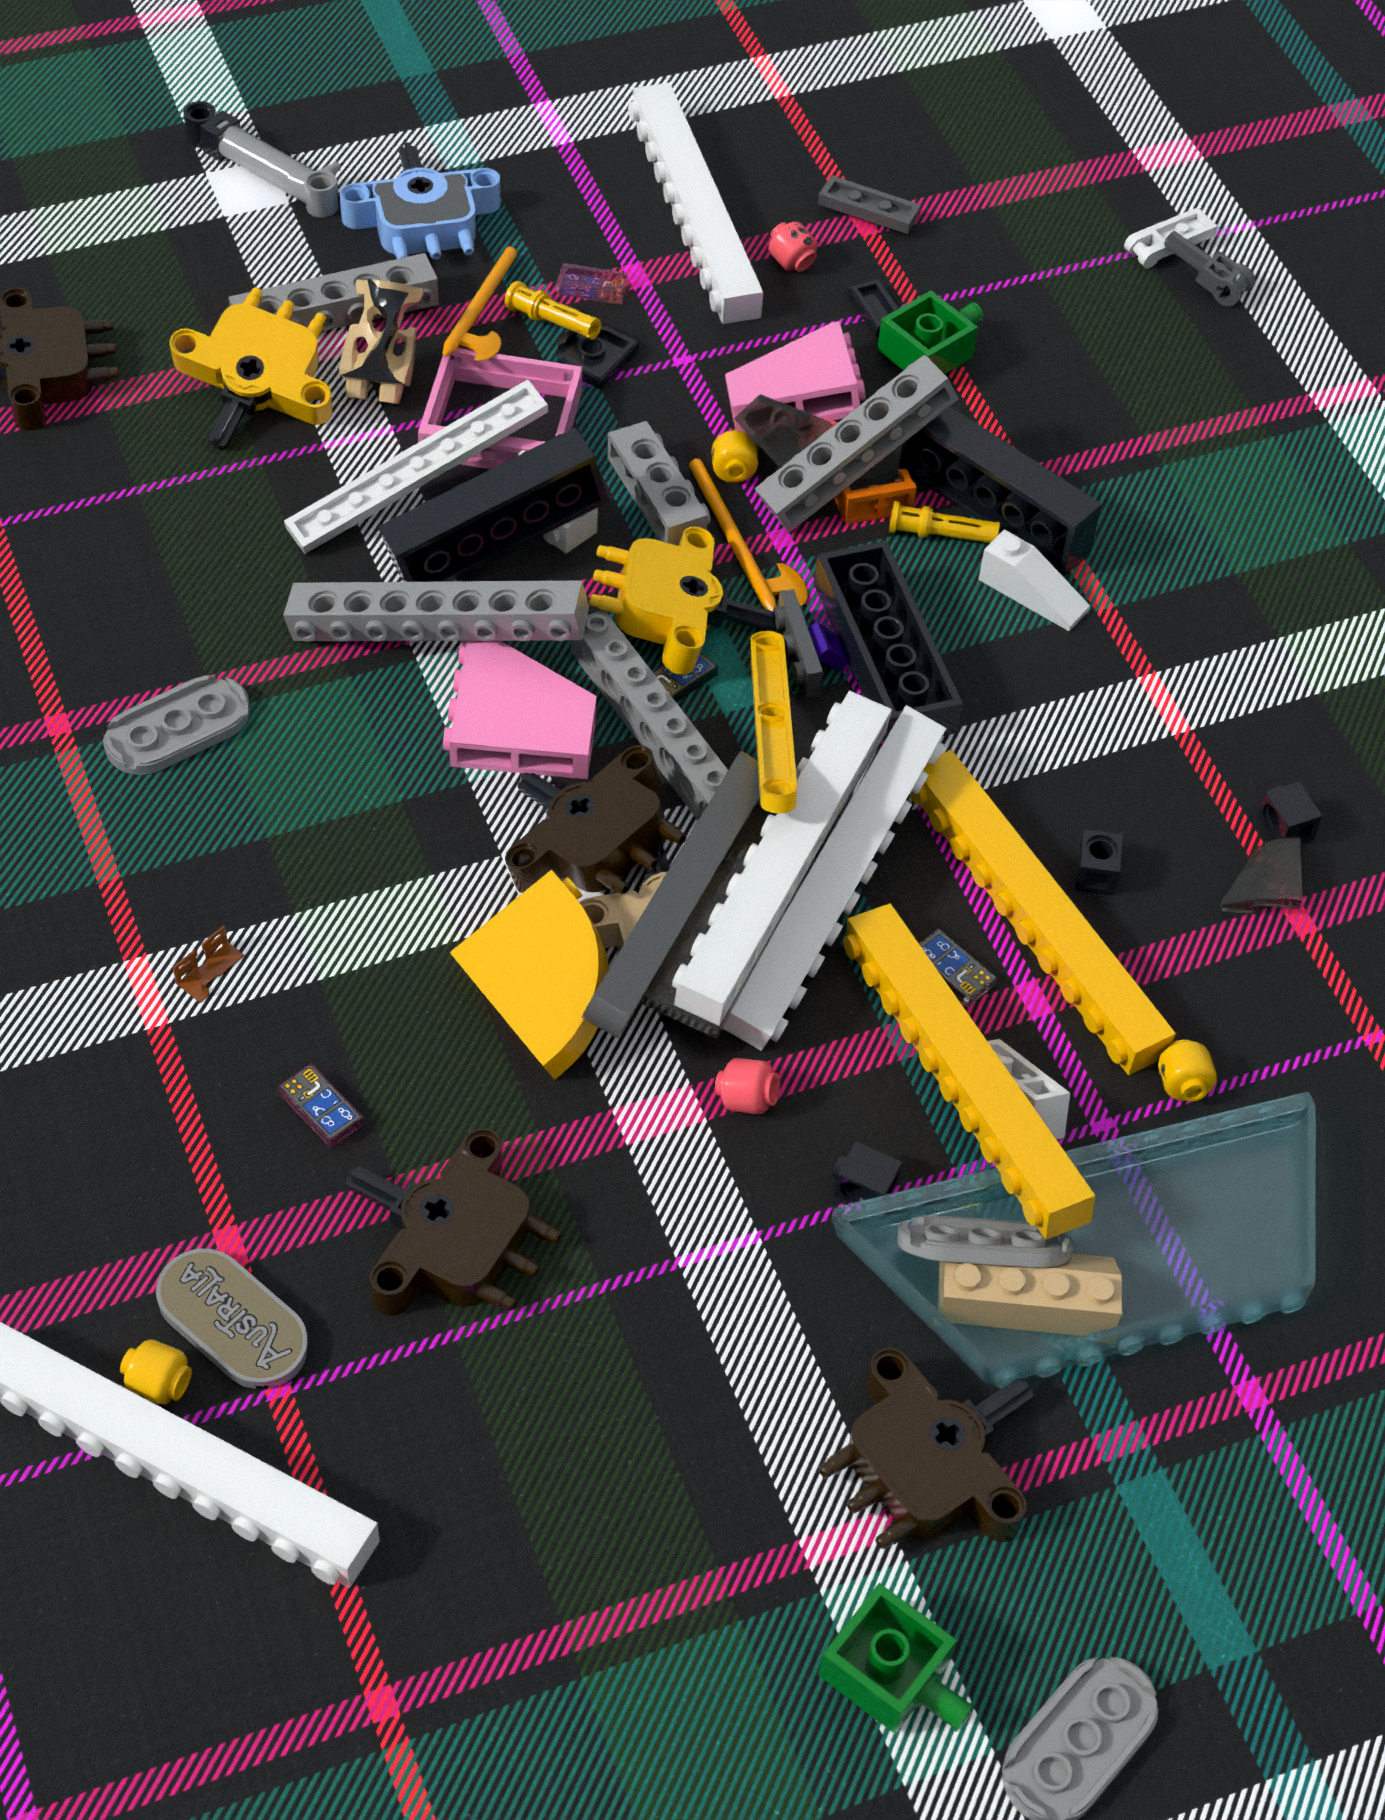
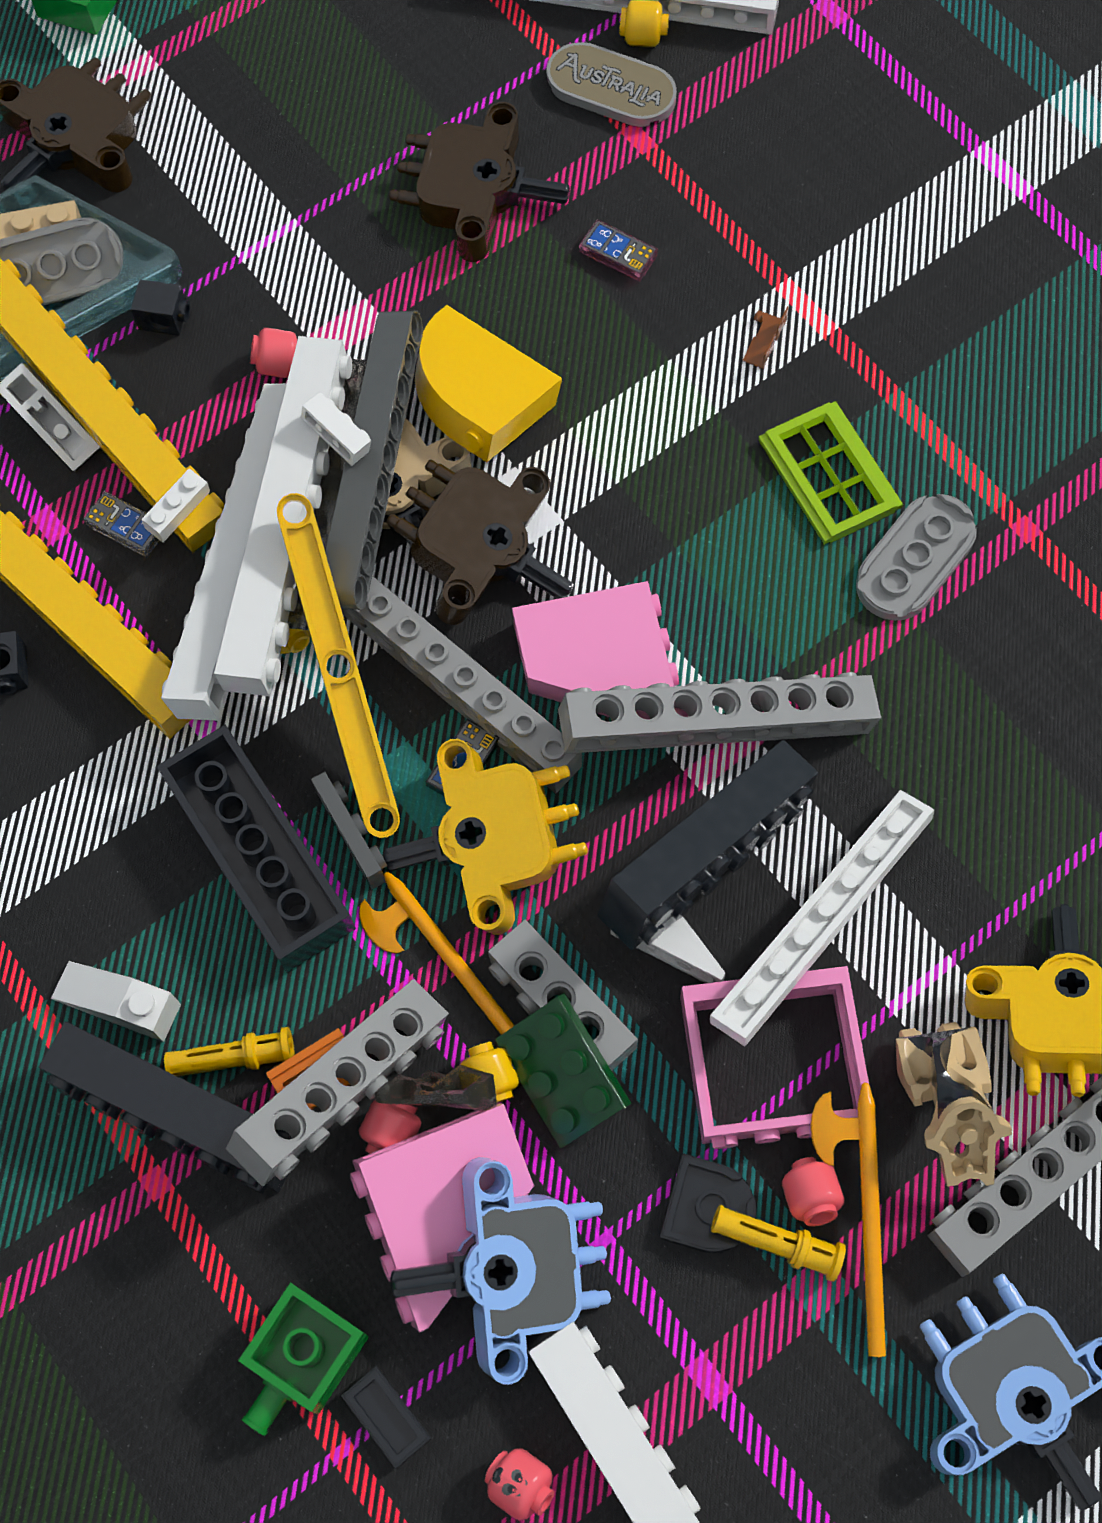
camera: 170 degrees right, 15 degrees up
(180, 823) = (801, 488): none -> lime piece
(516, 330) = (812, 1192): none -> coral head
(591, 283) = (756, 1334): clear pink tile -> none
(675, 433) = (563, 1071): none -> dark green plate
(712, 882) = (336, 428): none -> white piece
(758, 331) = (538, 1273): none -> piece
(828, 646) = (319, 834): dark purple plate -> none
(895, 919) = (176, 505): none -> white piece

